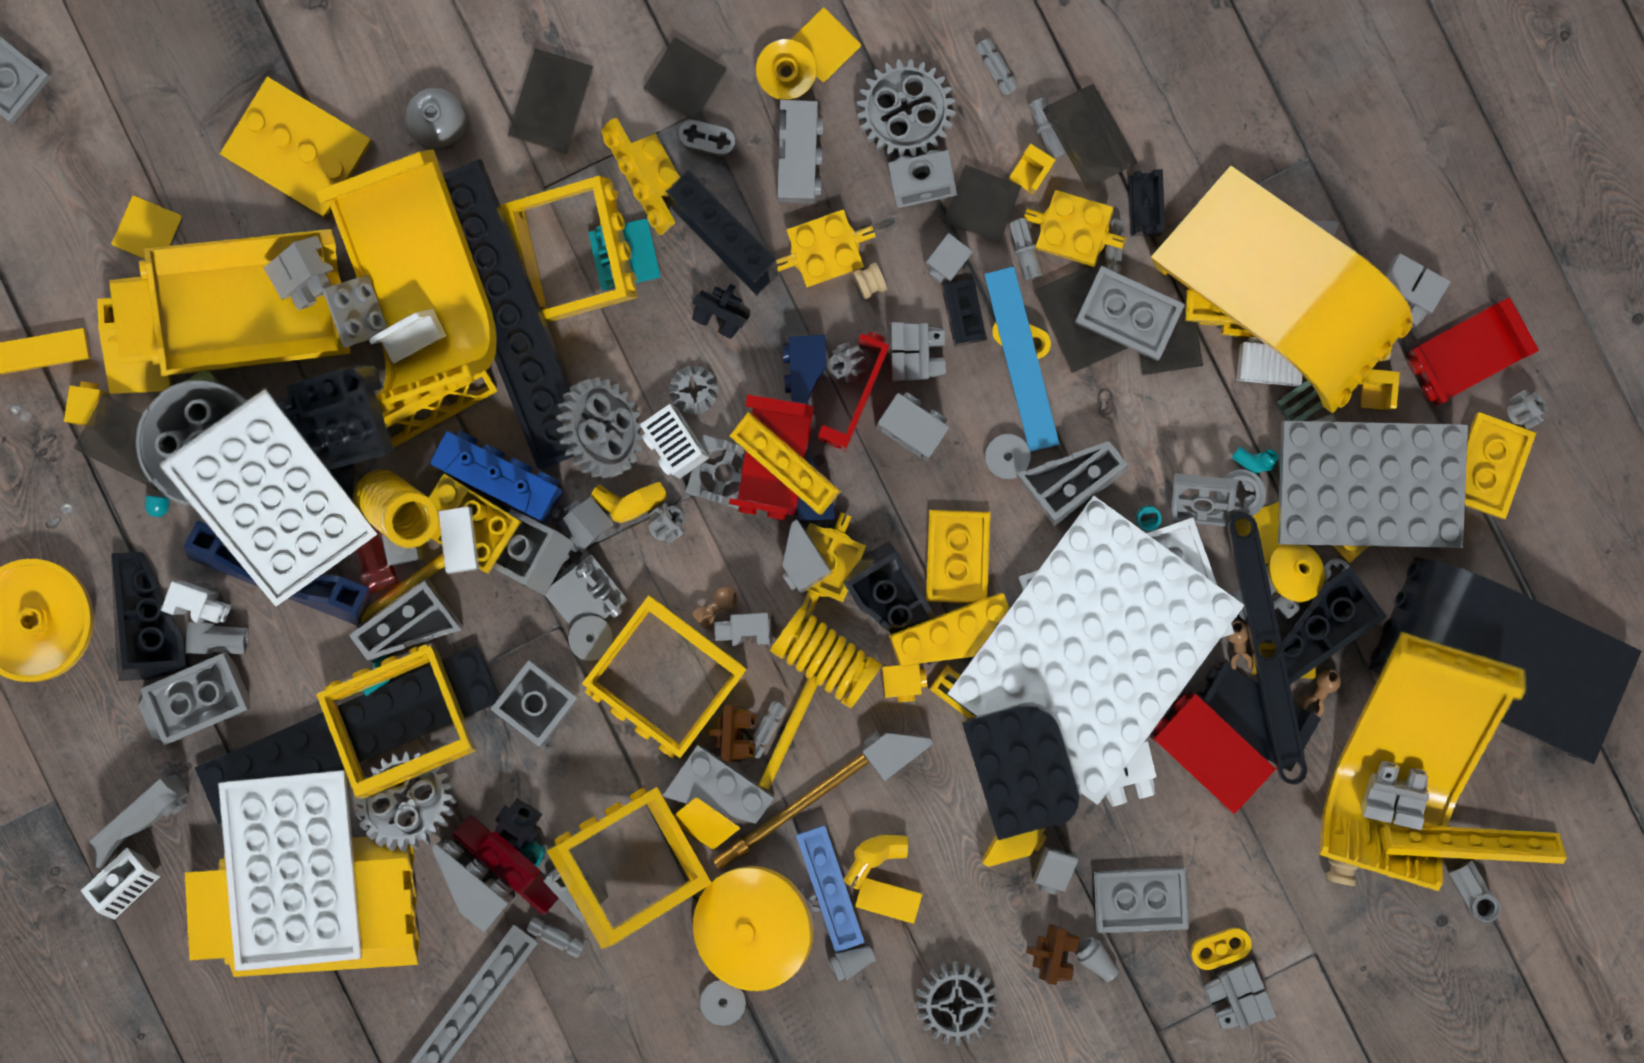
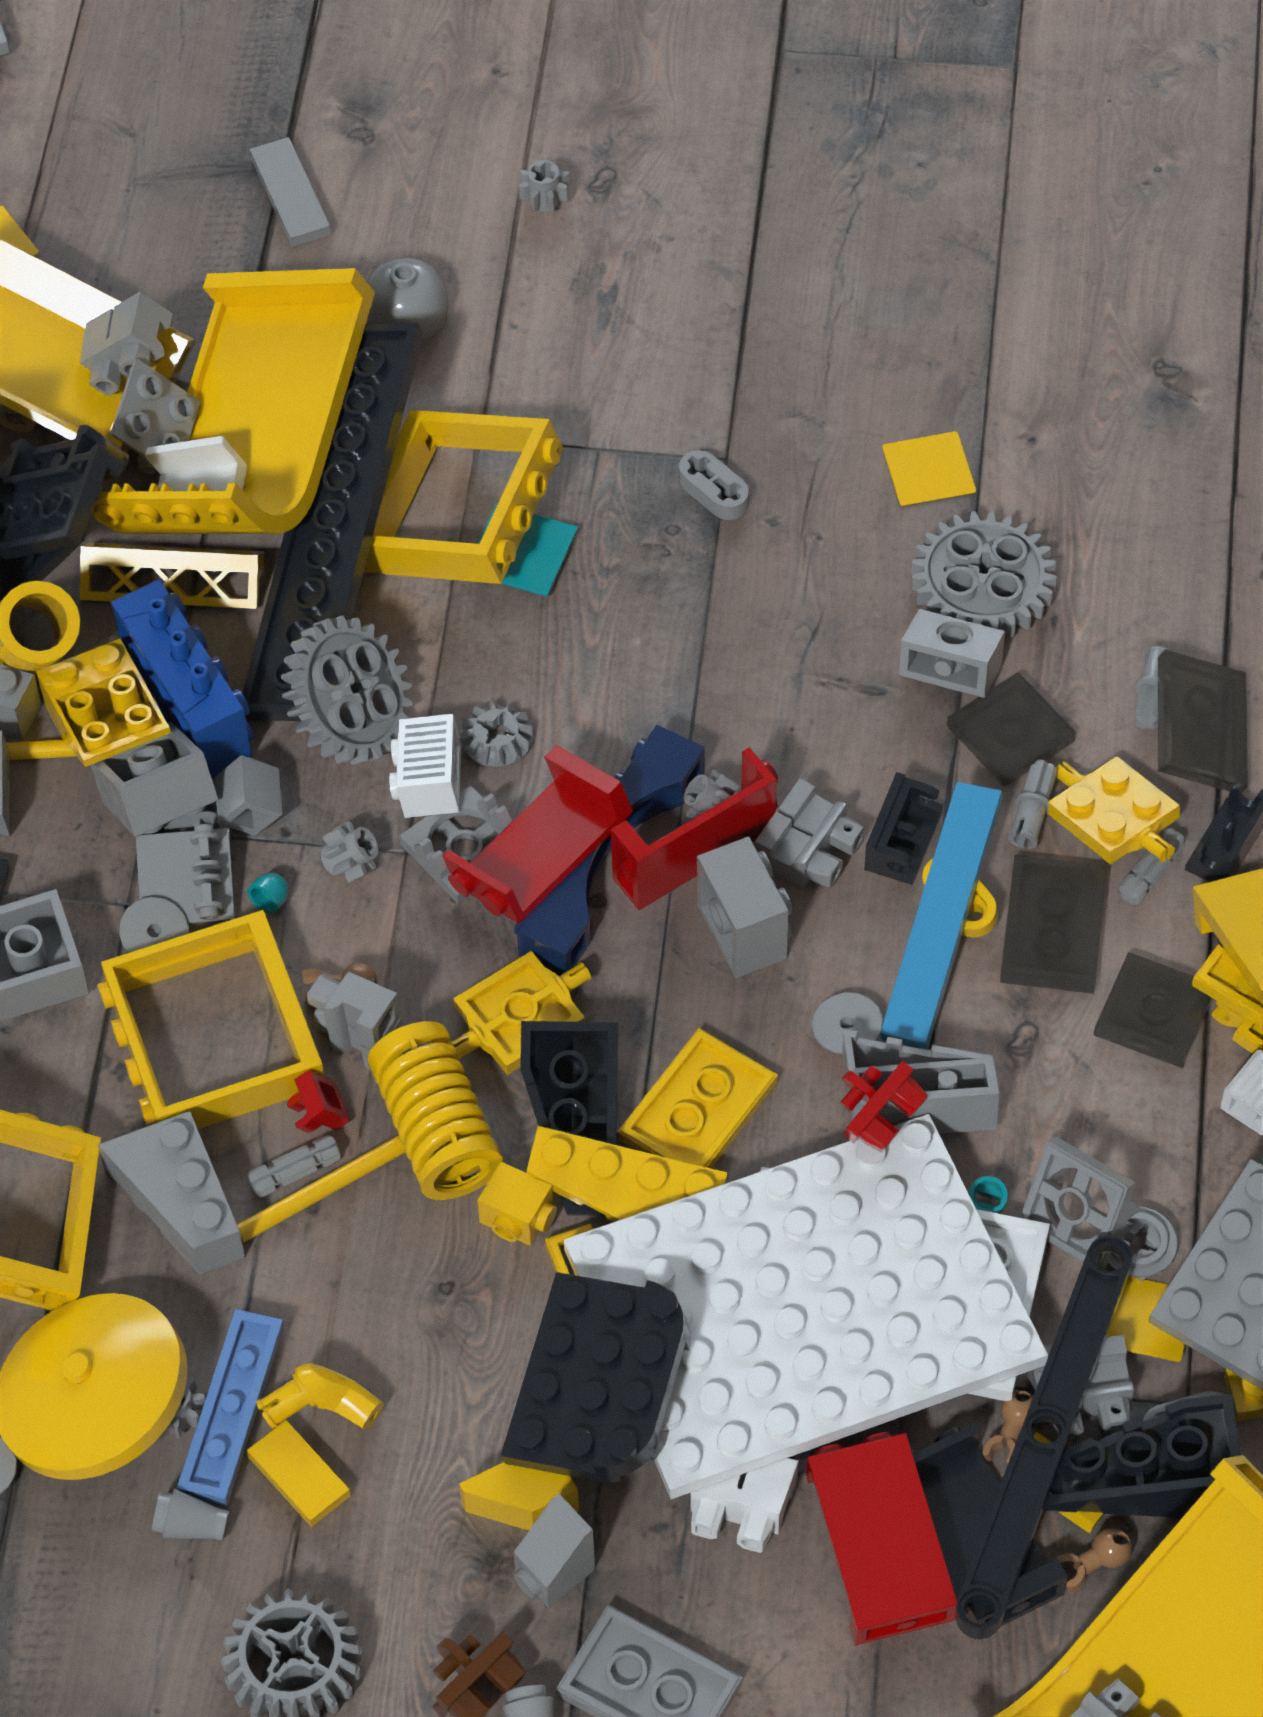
camera: 35 degrees right, 30 degrees down
(294, 145) = (213, 230): yellow plate -> none
(306, 77) = (290, 192): none -> light grey tile
(458, 540) = (78, 702): white tile -> none
(550, 101) = (554, 356): clear smoke tile -> none
(631, 506) = (322, 807): yellow arm -> none
(636, 572) = (268, 892): none -> teal hinge
(646, 170) = (615, 477): yellow bracket -> none
(685, 79) = (732, 414): clear smoke tile -> none
(705, 823) = (127, 1218): yellow sticker -> none
(723, 233) = (657, 562): black panel -> none
(730, 733) = (244, 1140): reddish brown hips -> none
(732, 316) = (601, 681): black hips -> none
(742, 846) = (155, 1287): pearl gold bar -> none
(756, 685) = (321, 1100): none -> red tile
(785, 463) = (548, 852): yellow tile -> none
(786, 54) = (863, 447): yellow dish -> none
(799, 152) = (818, 545): light grey wedge -> none
(803, 560) = (489, 977): light grey slope -> none
(825, 248) = (774, 671): yellow plate -> none
(870, 280) = (806, 730): tan wheel -> none
(893, 751) = (444, 1285): light grey slope -> none
(947, 259) = (924, 752): light grey brick -> none
(996, 66) = (1132, 594): light grey axle -> none
(1032, 169) = (1106, 725): yellow panel -> none
(1068, 517) = (897, 1089): none -> red hips
(1129, 313) = (1122, 937): light grey plate -> none
(1258, 462) = (1182, 1218): teal arm -> none
(1288, 578) = (1138, 1375): yellow dish -> none

